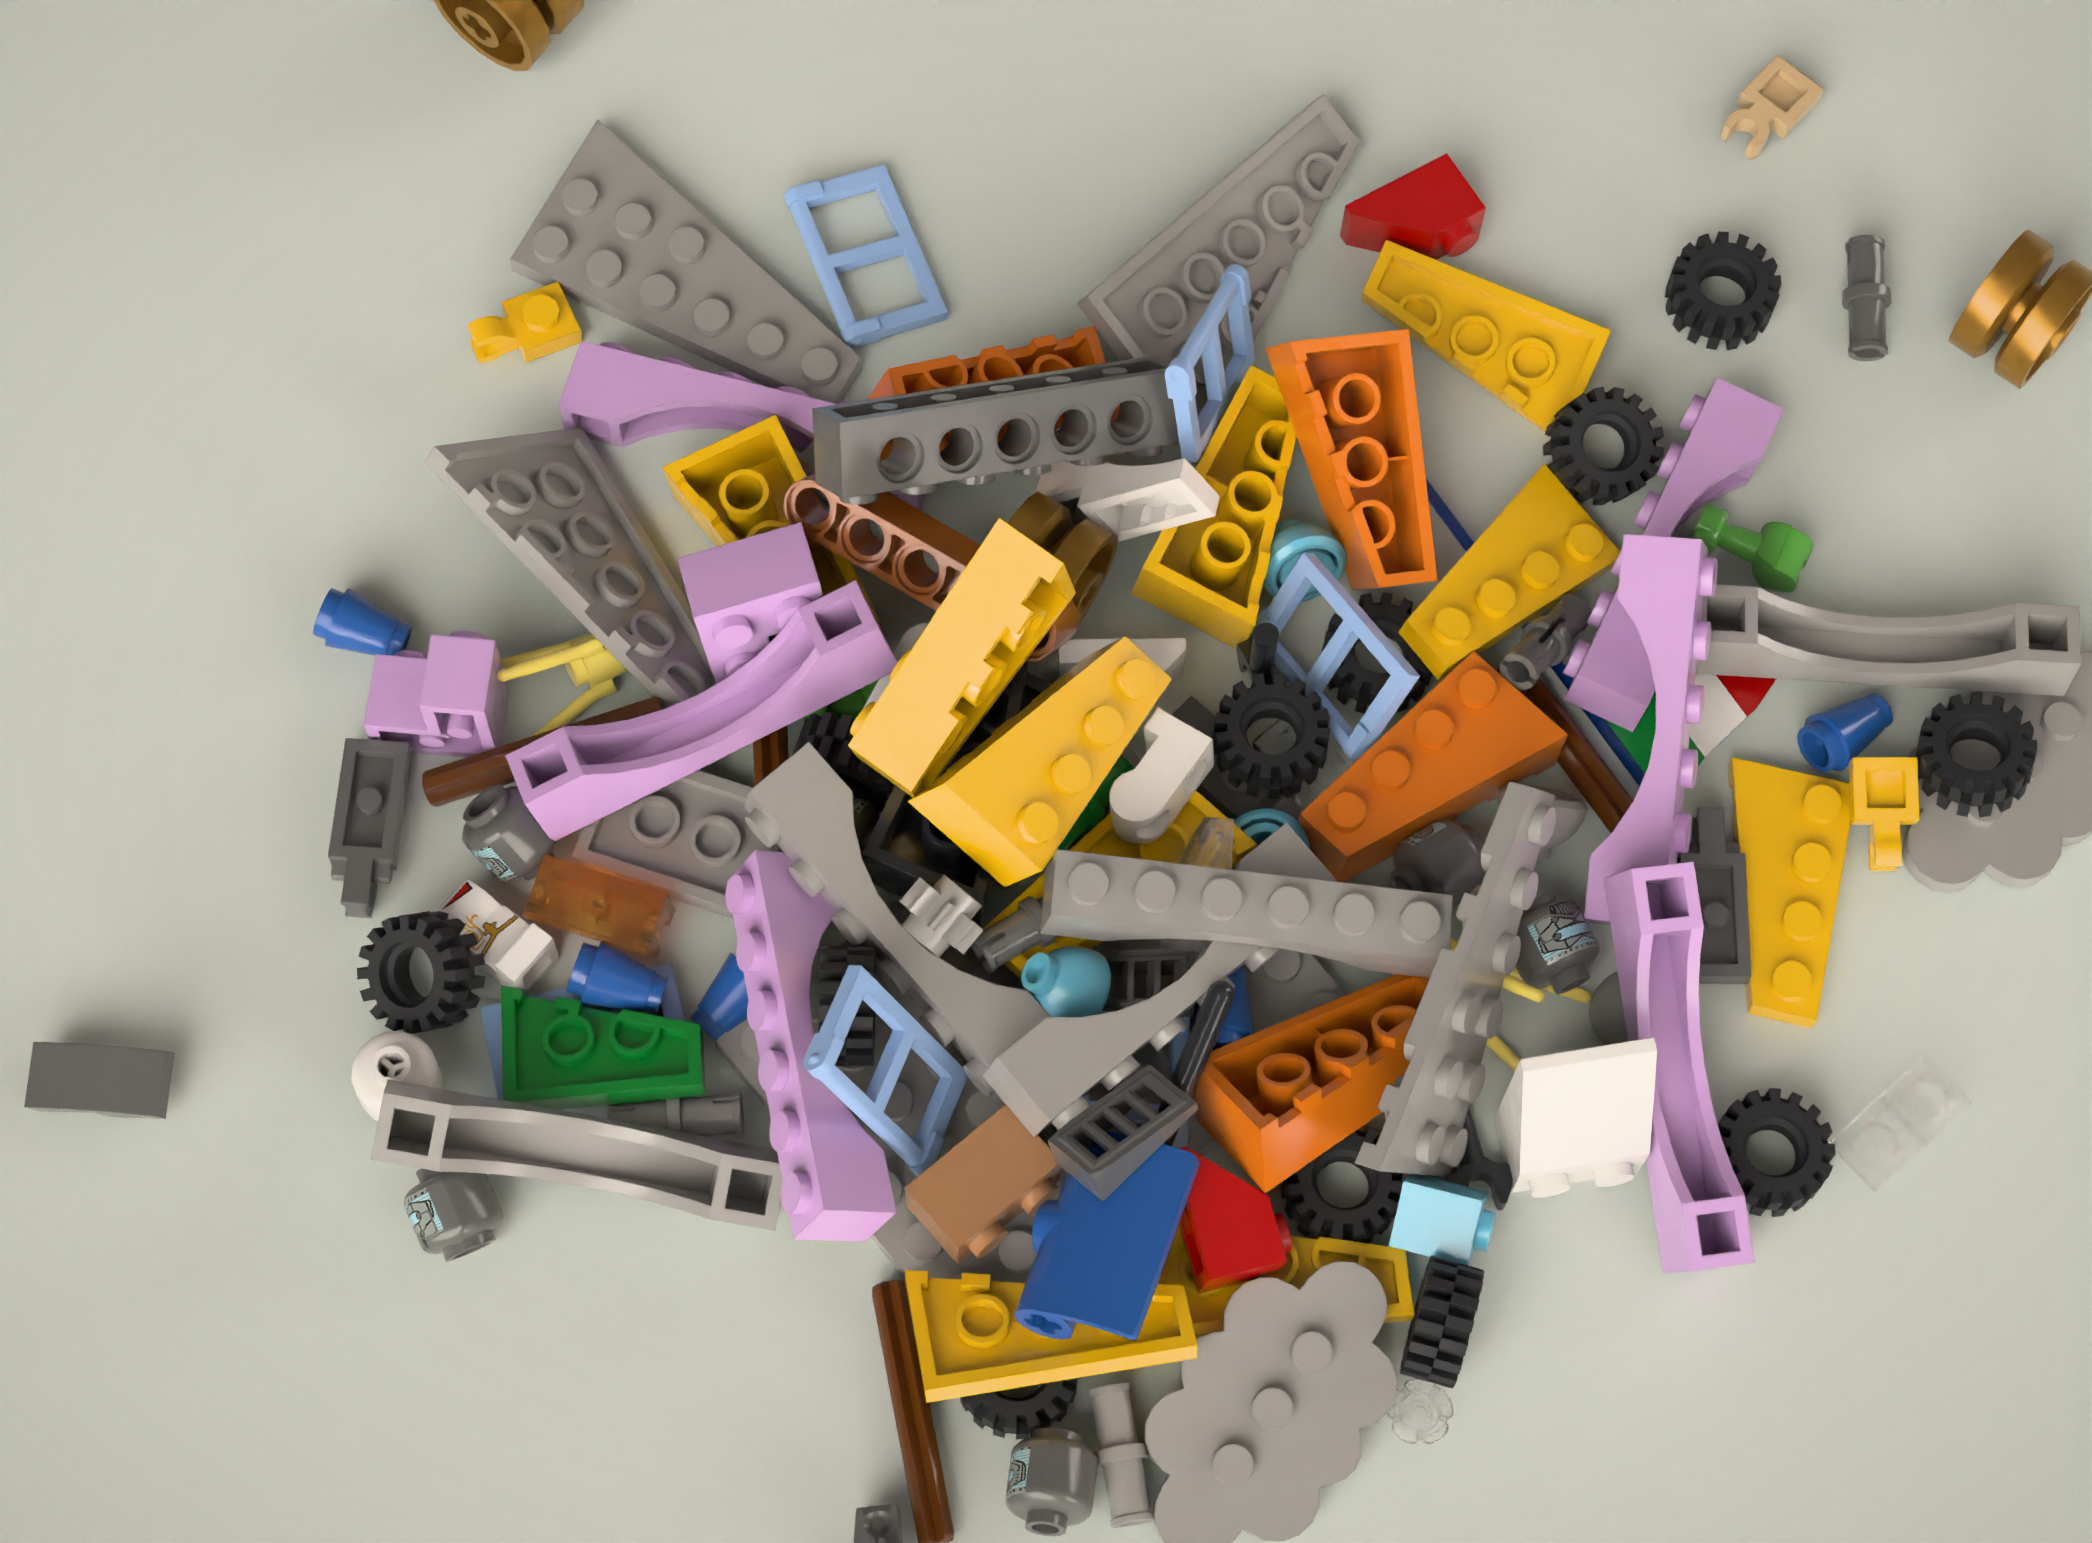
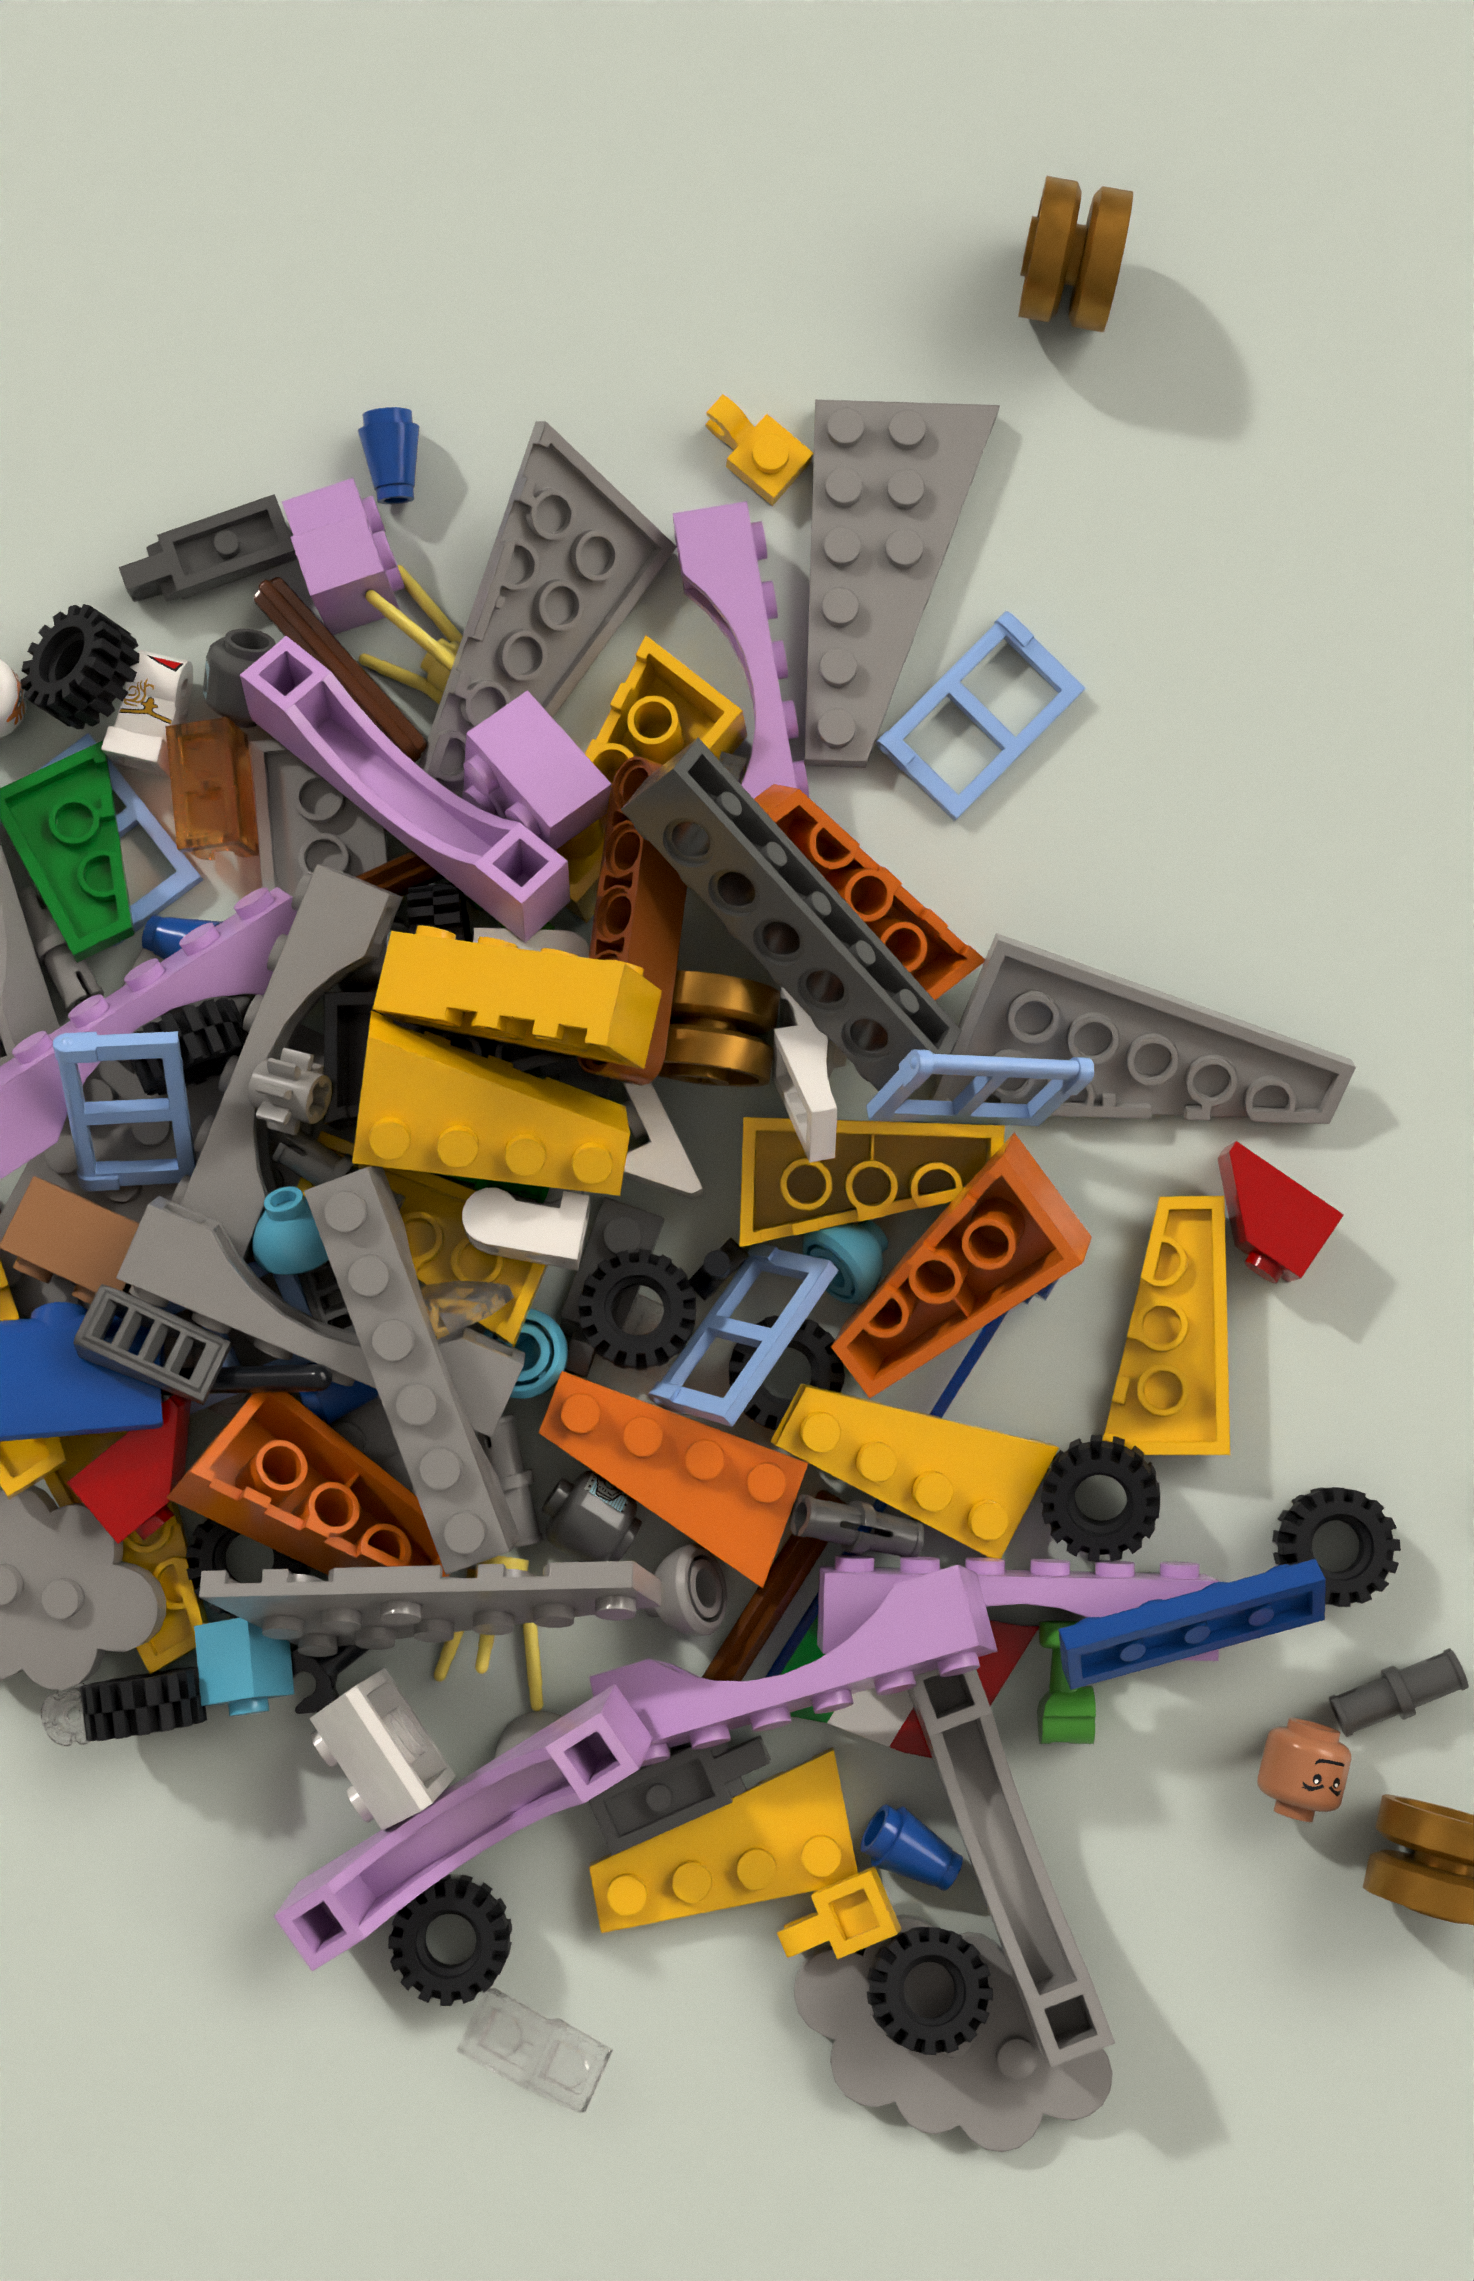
camera: 70 degrees right, 15 degrees up
(615, 980) = (149, 835): blue cone -> none
(1555, 944) = (559, 1659): dark grey head -> none
(1746, 404) = (1192, 1623): none -> blue plate
(1902, 391) = (1304, 1769): none -> nougat head

